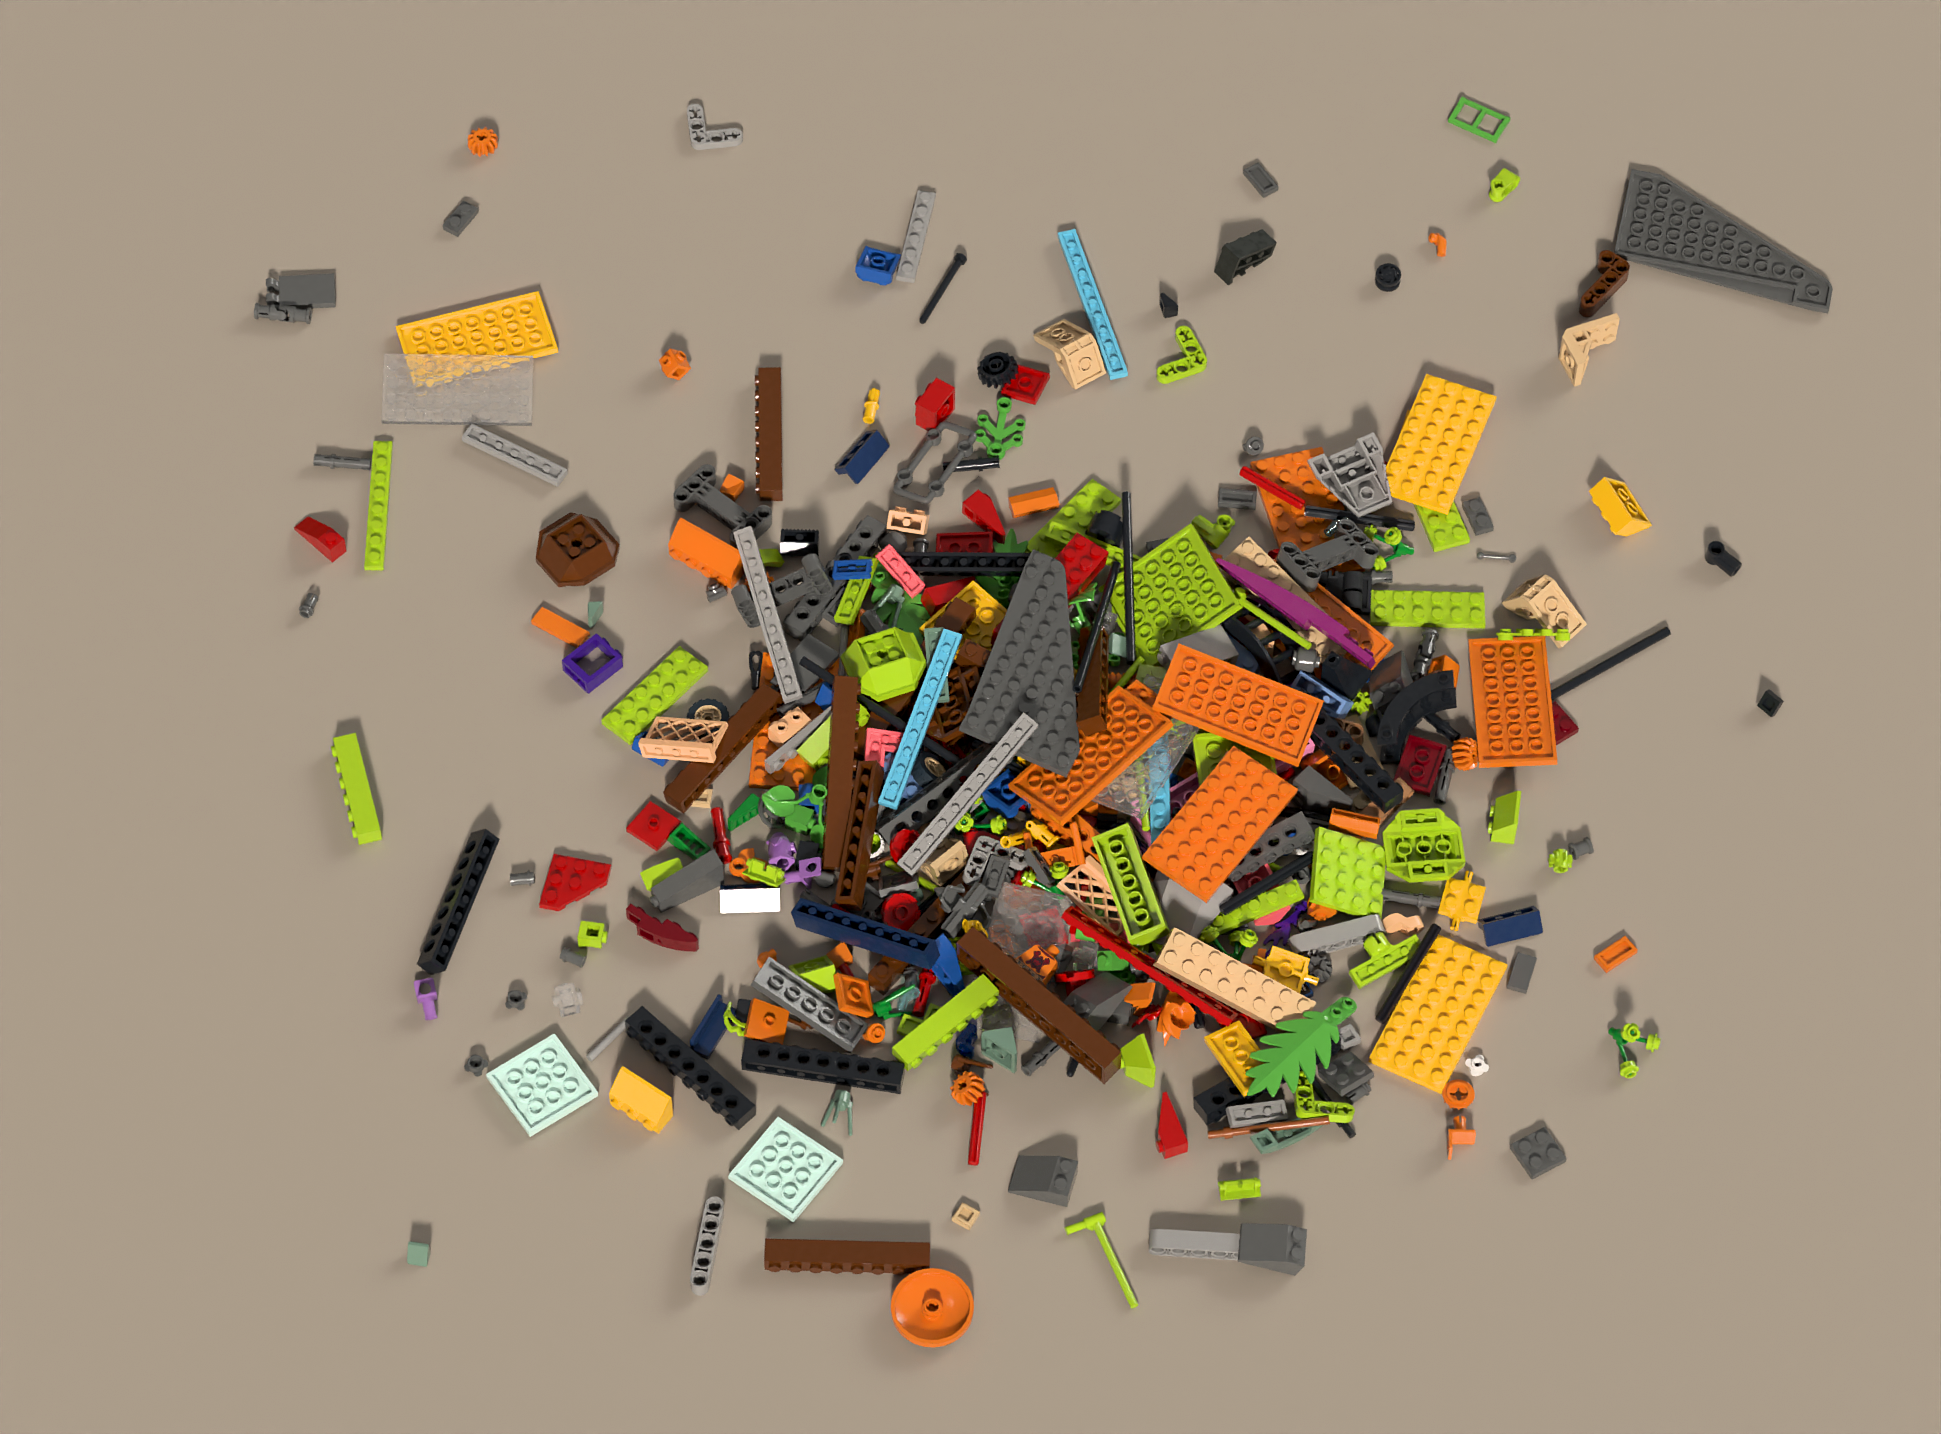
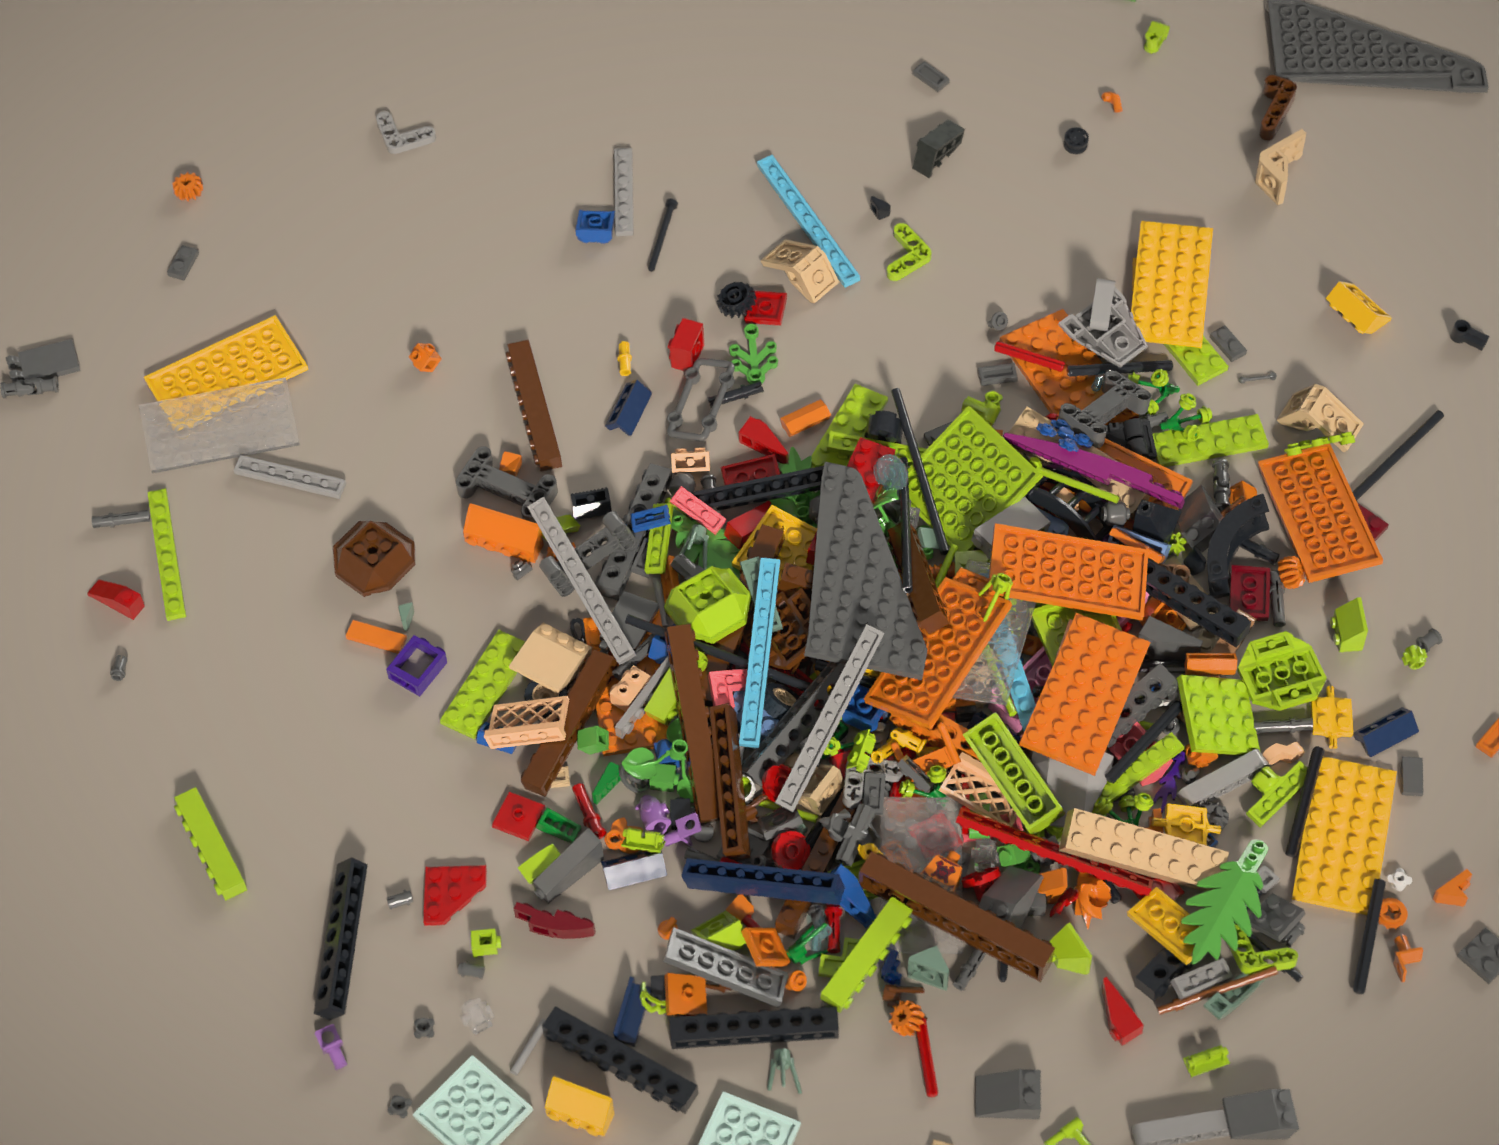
camera: 10 degrees left, 0 degrees up
(721, 683) = (551, 658): none -> tan slope
(741, 769) = (593, 740): none -> bright green brick
(986, 838) = (864, 743): none -> lime hinge
(1096, 573) = (891, 472): none -> clear light blue tile
(1165, 701) = (1001, 583): none -> lime plant
(1277, 570) = (1066, 434): none -> blue plant
(1312, 690) = (1131, 541): none -> orange tile
(1356, 451) = (1102, 304): none -> light grey beam
(1410, 596) = (1190, 432): none -> lime plant
(1429, 1110) = (1369, 936): none -> black axle
(1522, 1086) = (1452, 891): none -> orange slope

